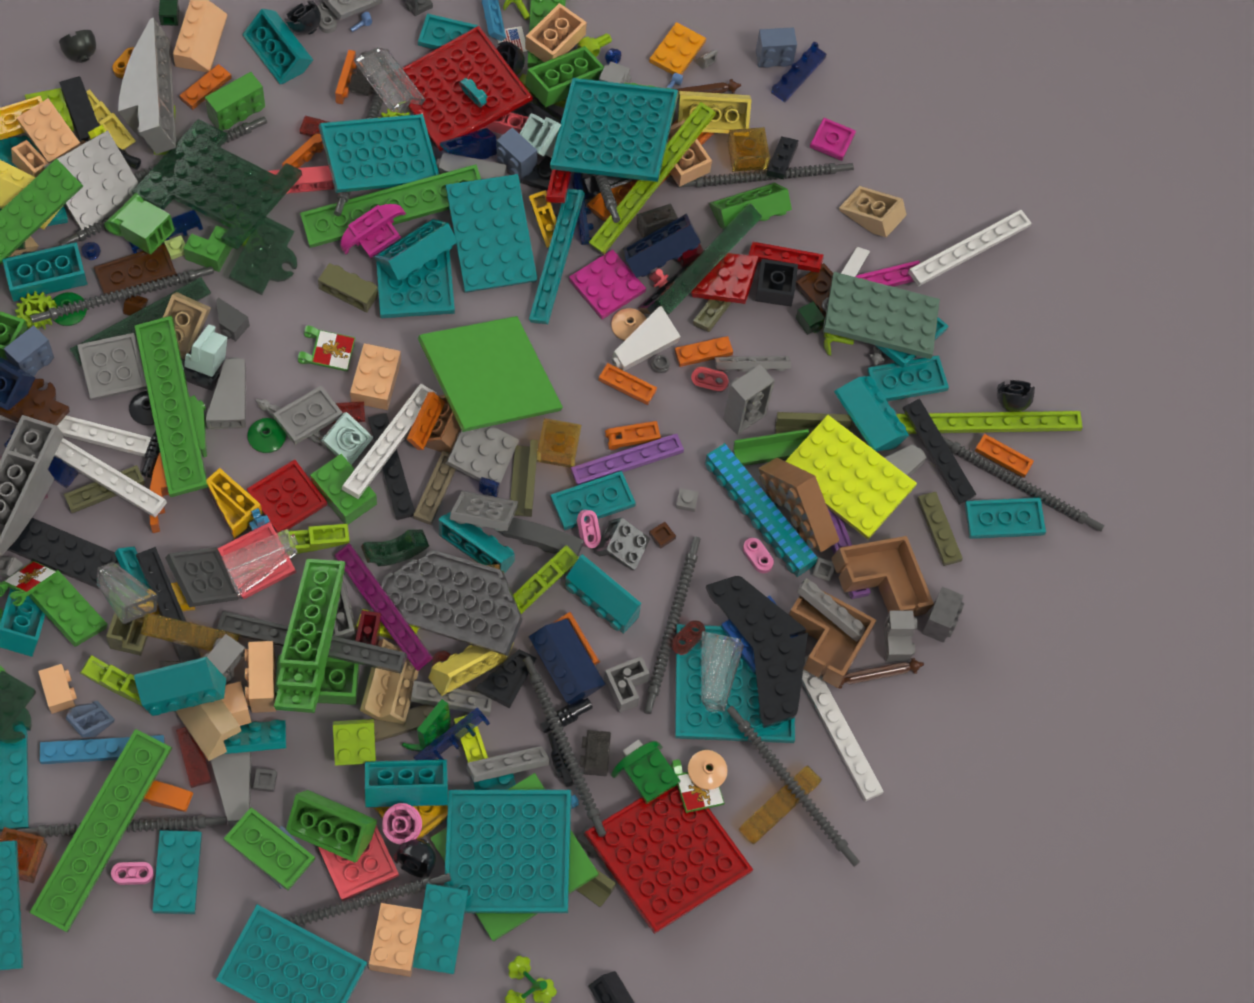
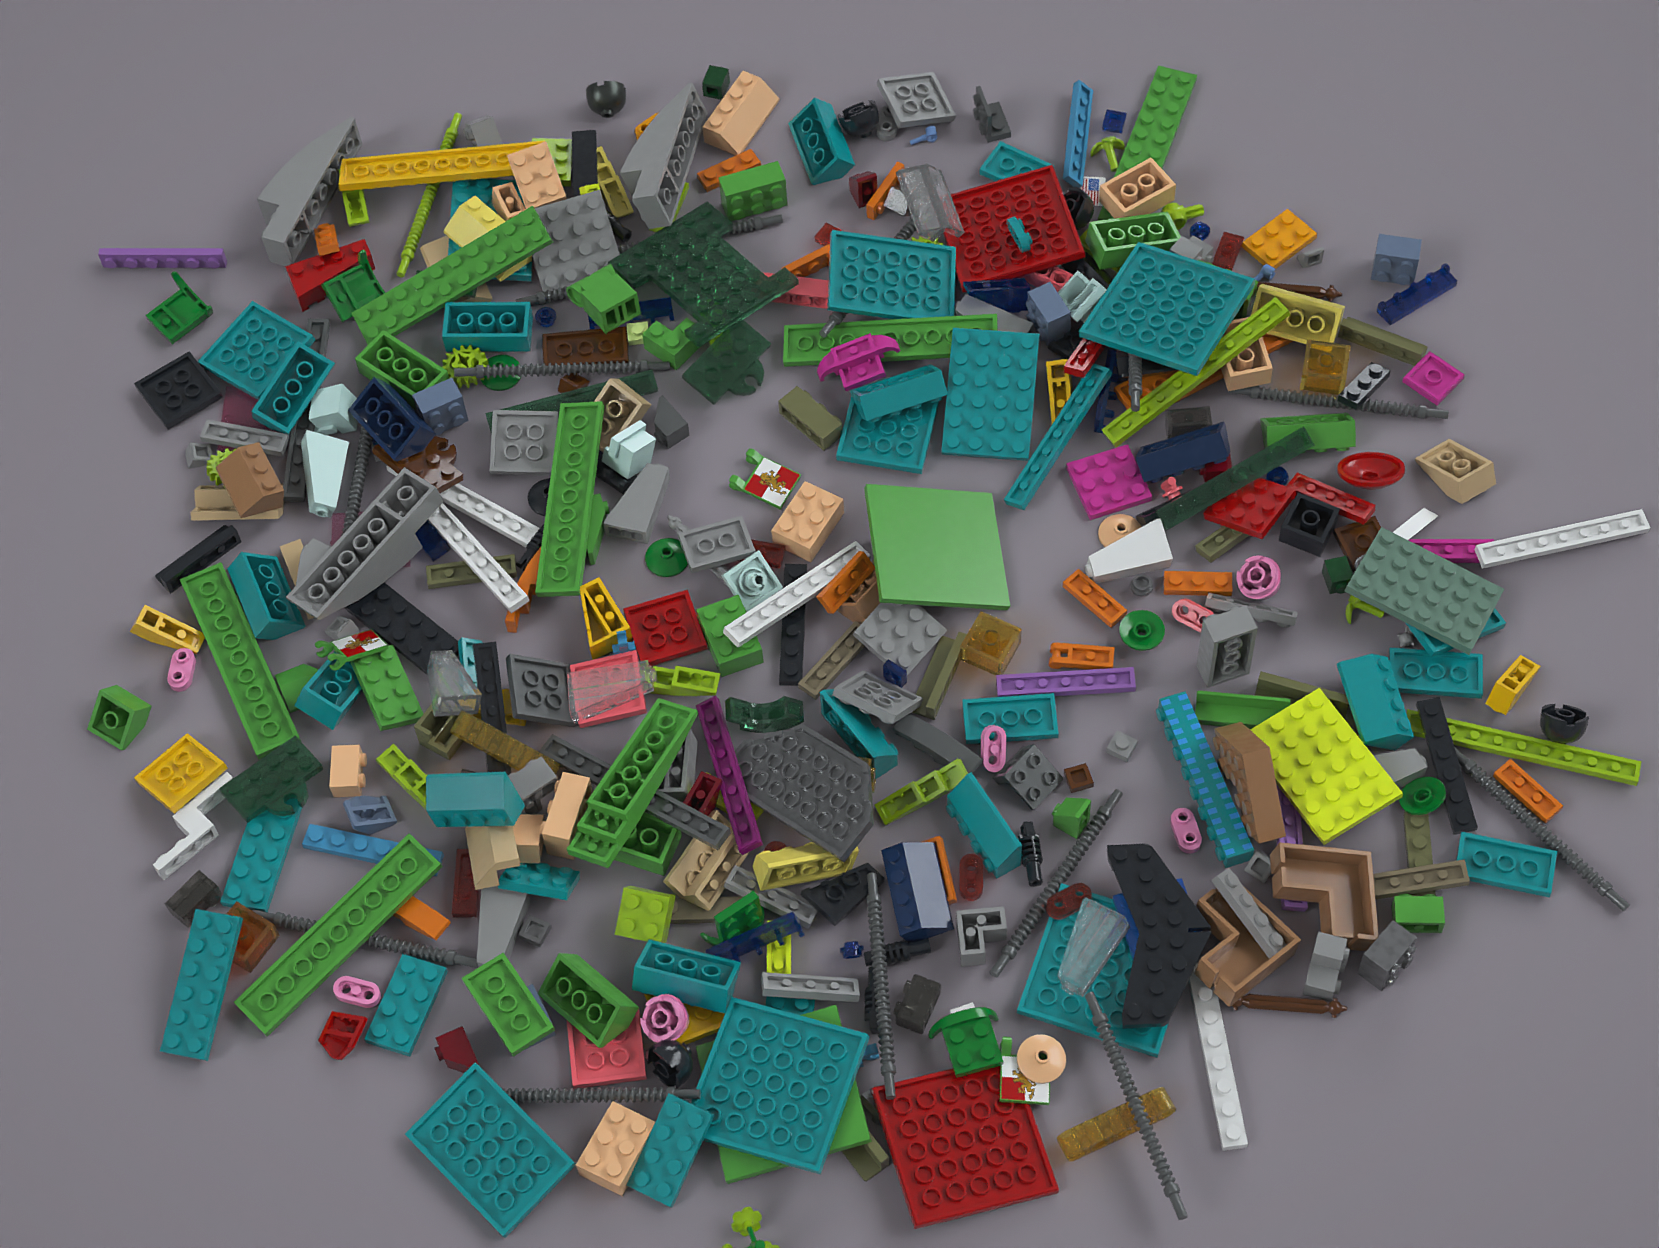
camera: 30 degrees right, 5 degrees down
(132, 912) = (341, 1034): none -> red slope
(235, 898) = (455, 1050): none -> dark red slope
(327, 78) = (863, 187): none -> dark red slope
(529, 724) = (852, 950): none -> clear blue plate
(604, 639) = (969, 878): none -> clear red plate
(640, 68) = (1228, 251): none -> clear red plate
(647, 607) = (1031, 853): none -> black hinge
(668, 567) = (1072, 816): none -> bright green slope
(673, 394) = (1144, 622): none -> green dish
(742, 246) = (1278, 472): none -> clear blue plate
(752, 335) = (1259, 578): none -> bright pink cone
(784, 117) = (1381, 341): none -> olive panel
(810, 226) = (1371, 470): none -> red dish
(927, 474) = (1422, 795): none -> green dish
(949, 547) = (1420, 879): none -> dark tan plate
(953, 574) = (1419, 913): none -> bright green brick
(968, 374) = (1512, 685): none -> yellow slope

